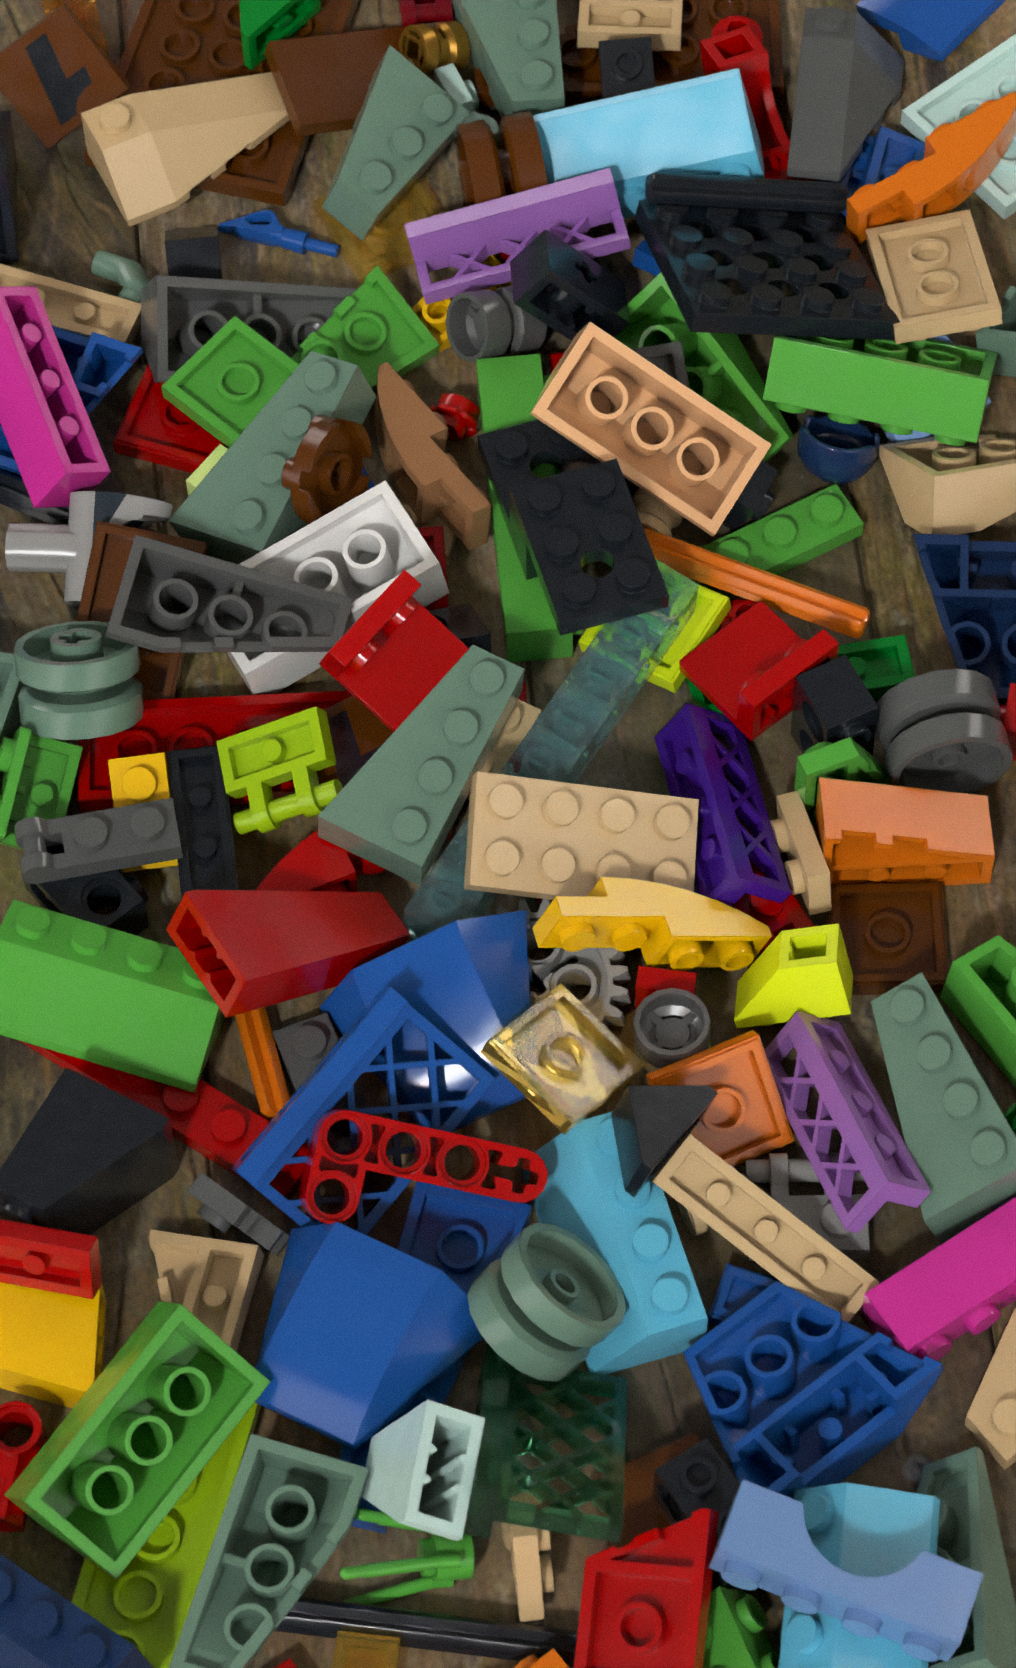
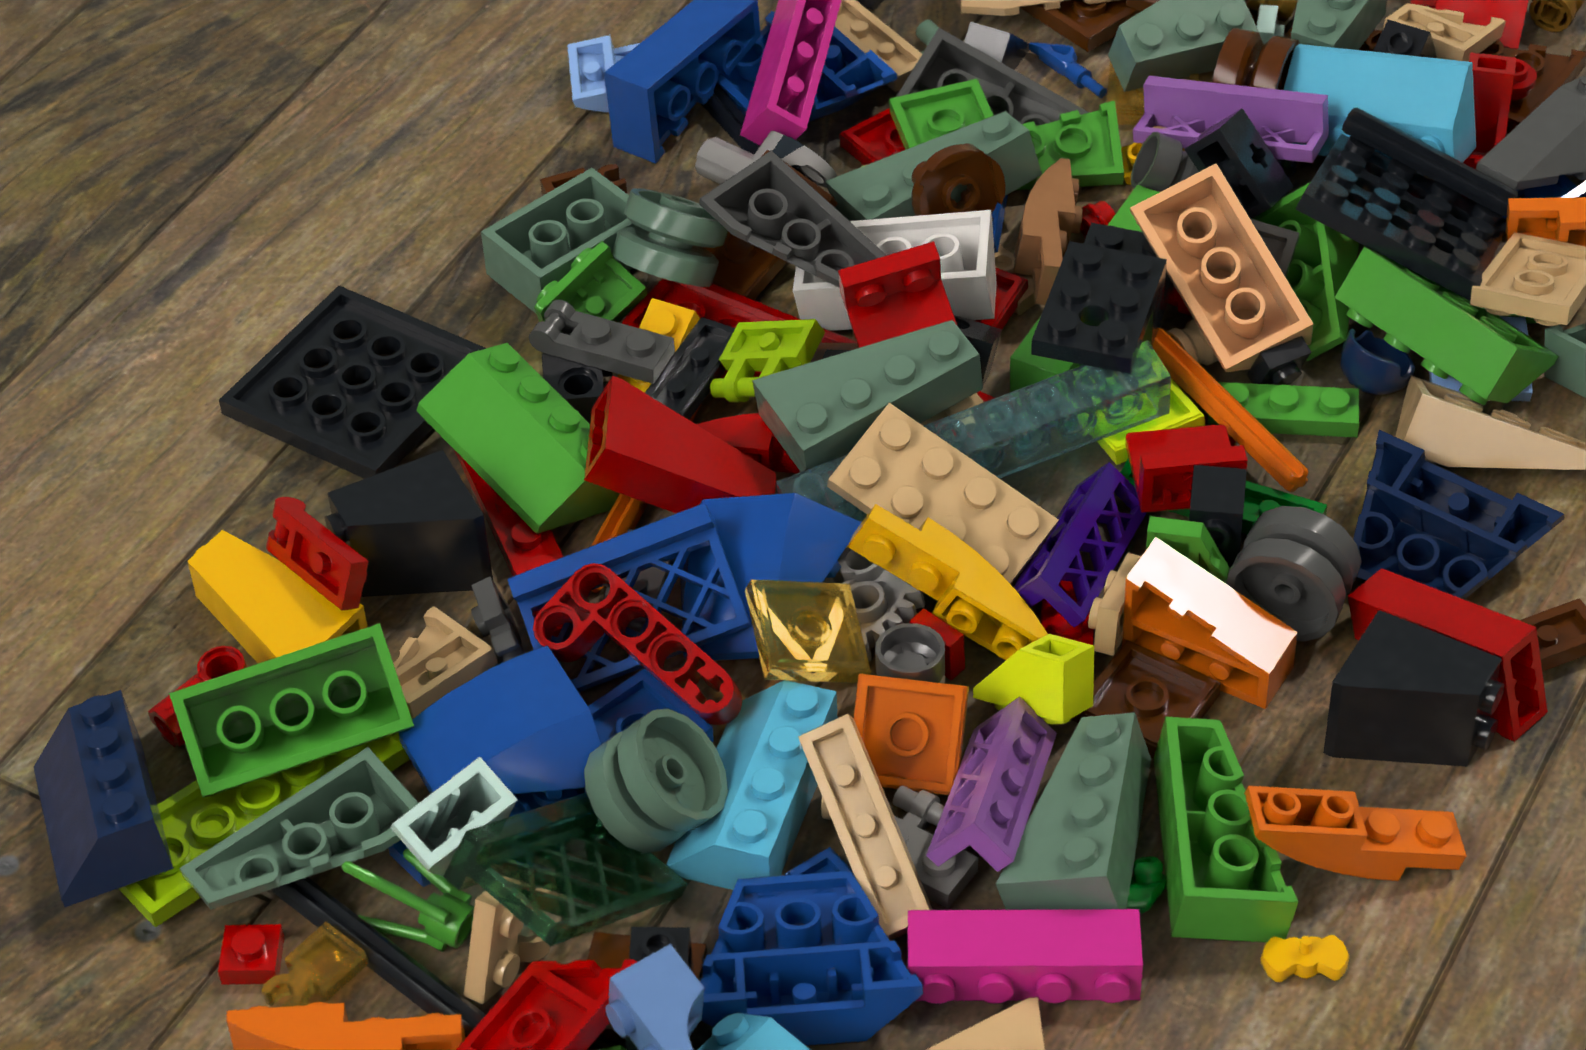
camera: 35 degrees right, 15 degrees down
(651, 1124) = (831, 692): black slope -> none

